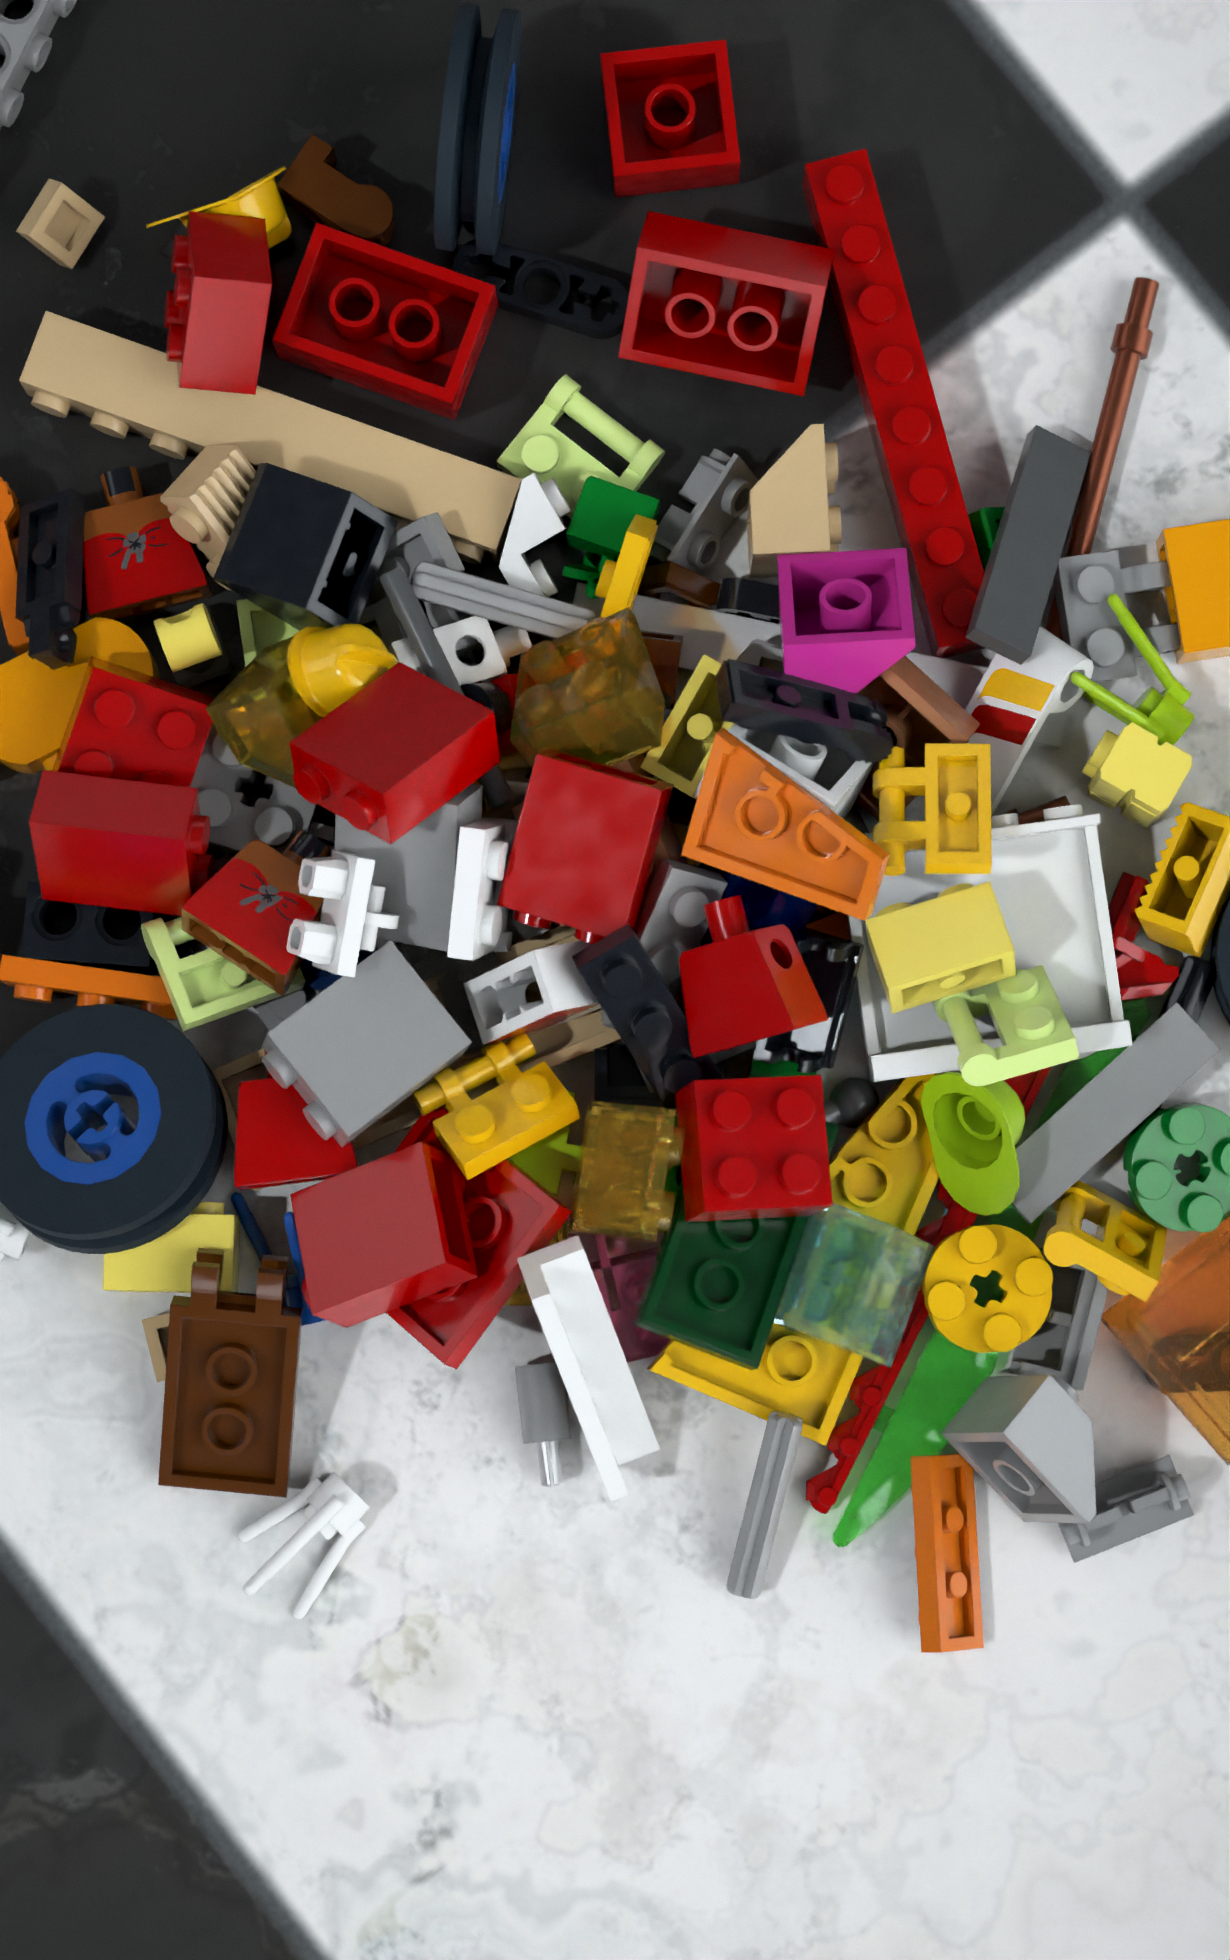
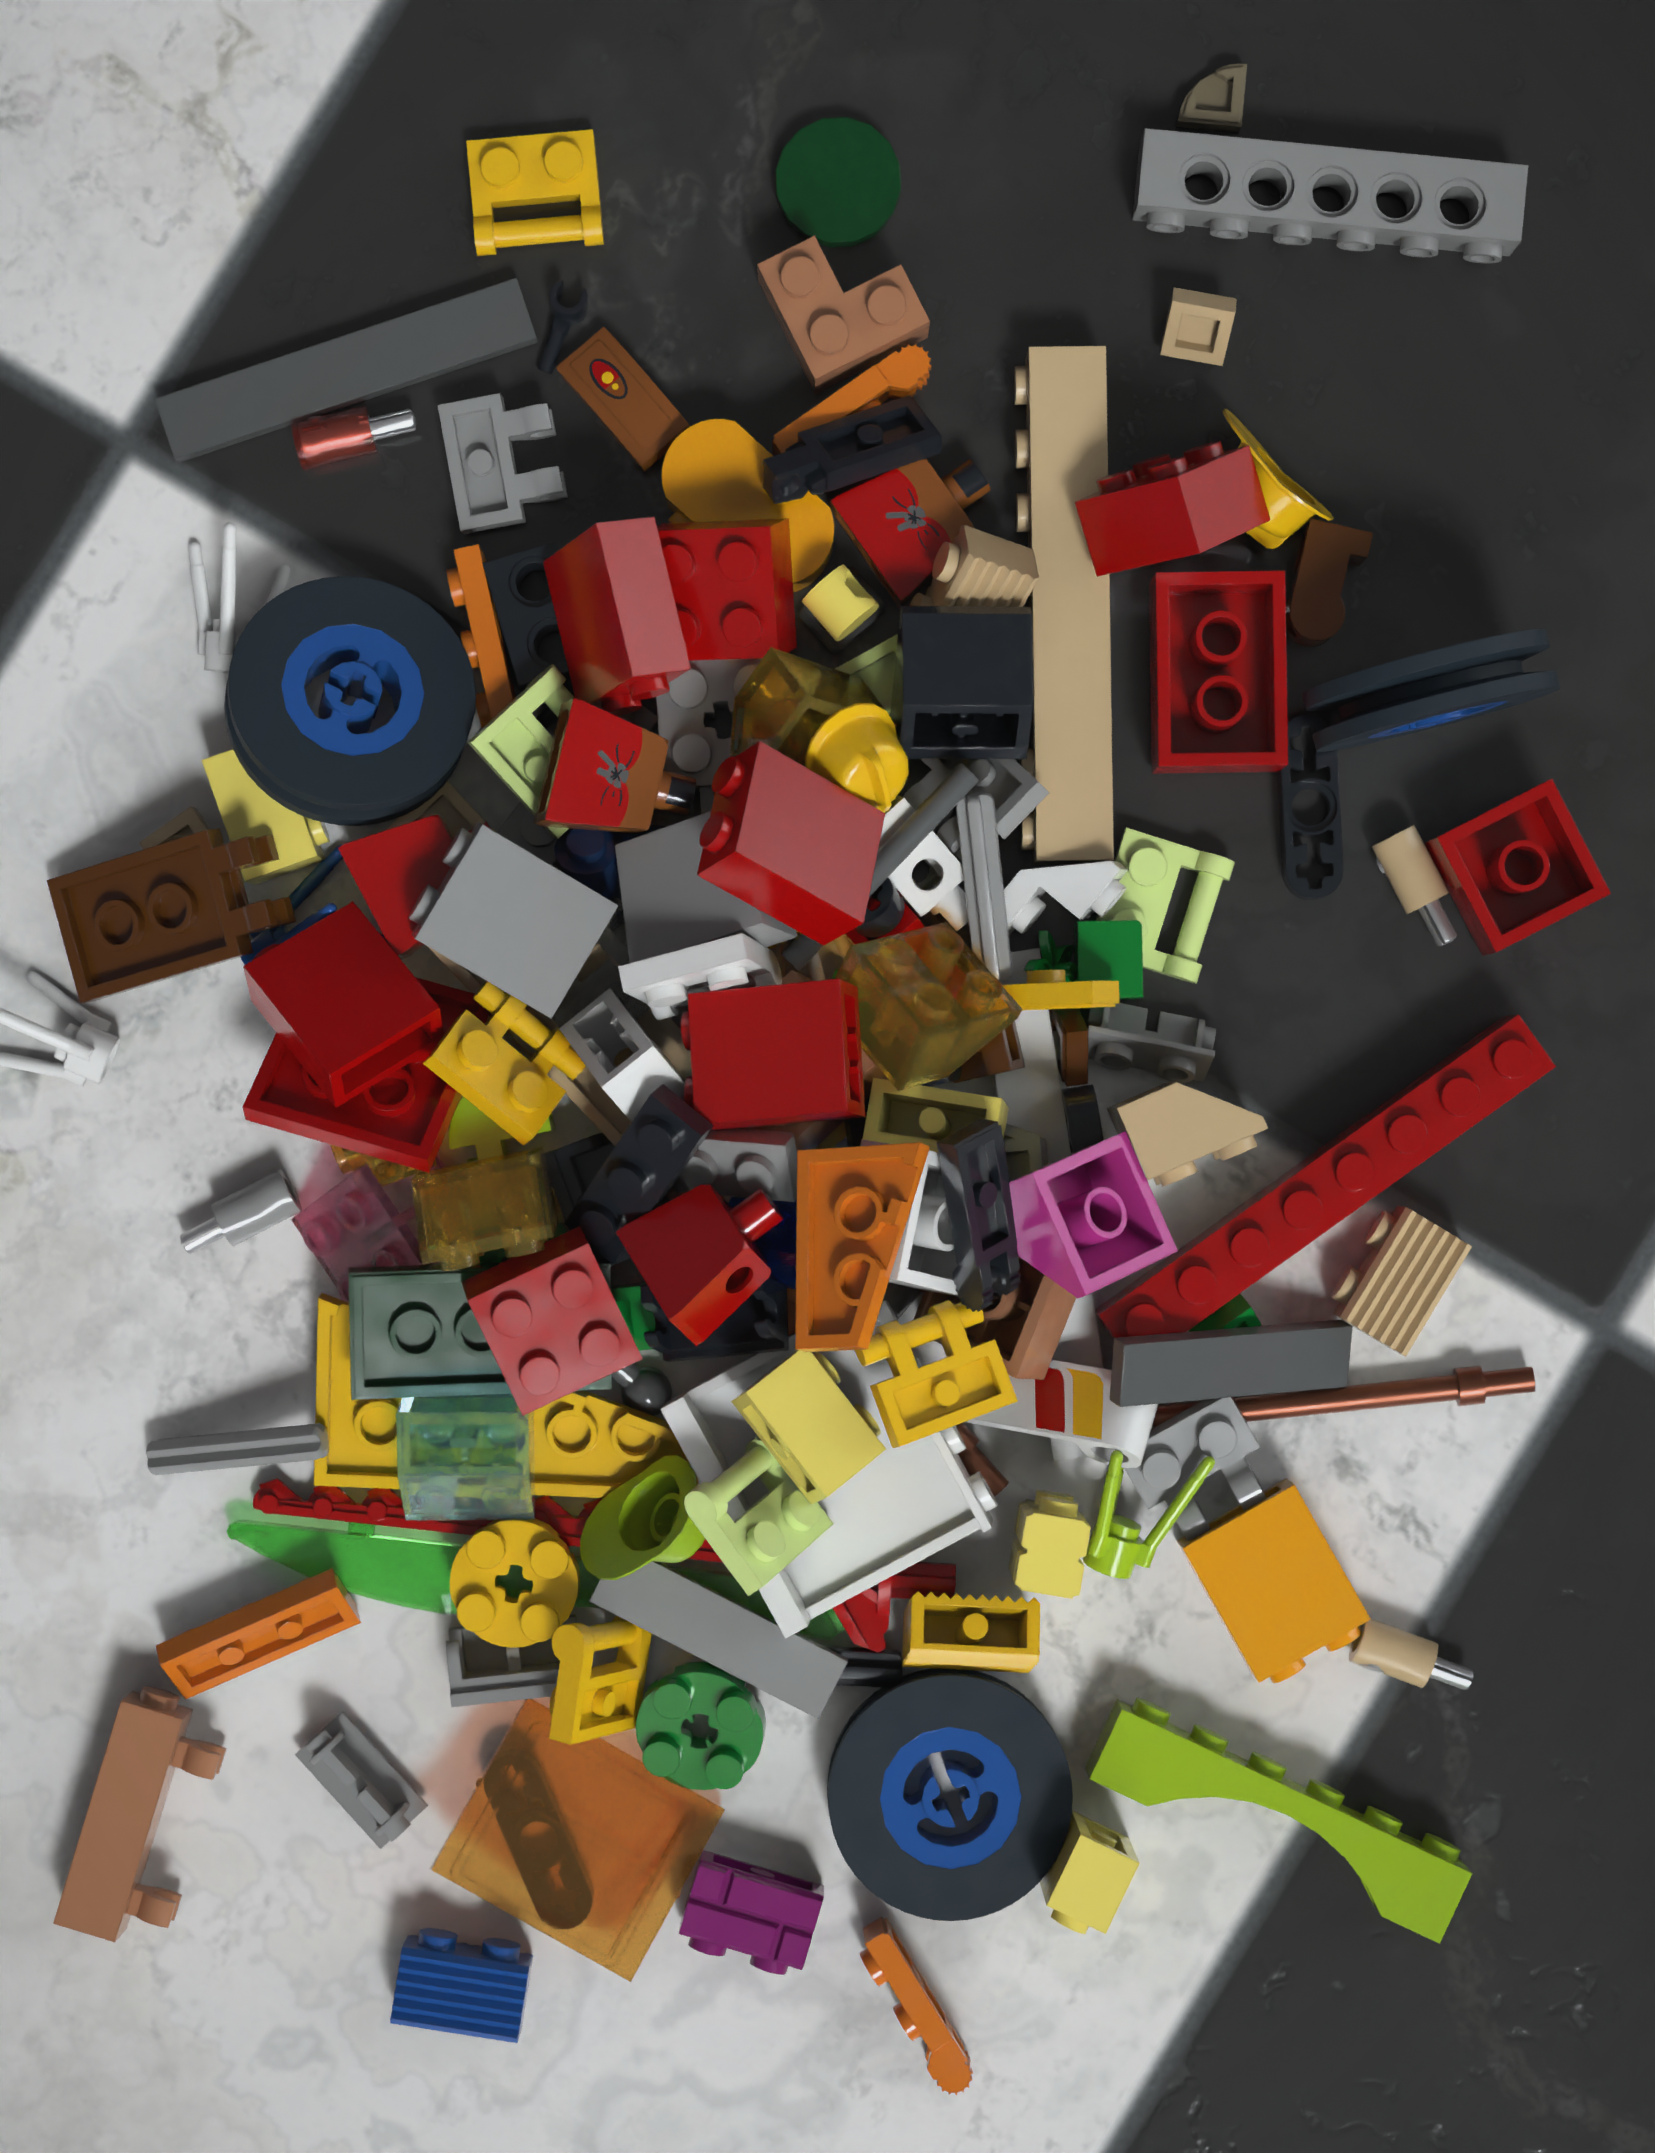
camera: 70 degrees right, 5 degrees up
(348, 912) = (627, 857): white hips -> none
(589, 1358) = (302, 1237): white fence -> none
(623, 217) = (1415, 880): none -> tan piece
(725, 303) = (1355, 989): red brick -> none
(1008, 366) = (1399, 1279): none -> tan brick
(1030, 1446) = (381, 1677): light grey slope -> none
(1071, 1744) = (125, 1815): none -> nougat brick

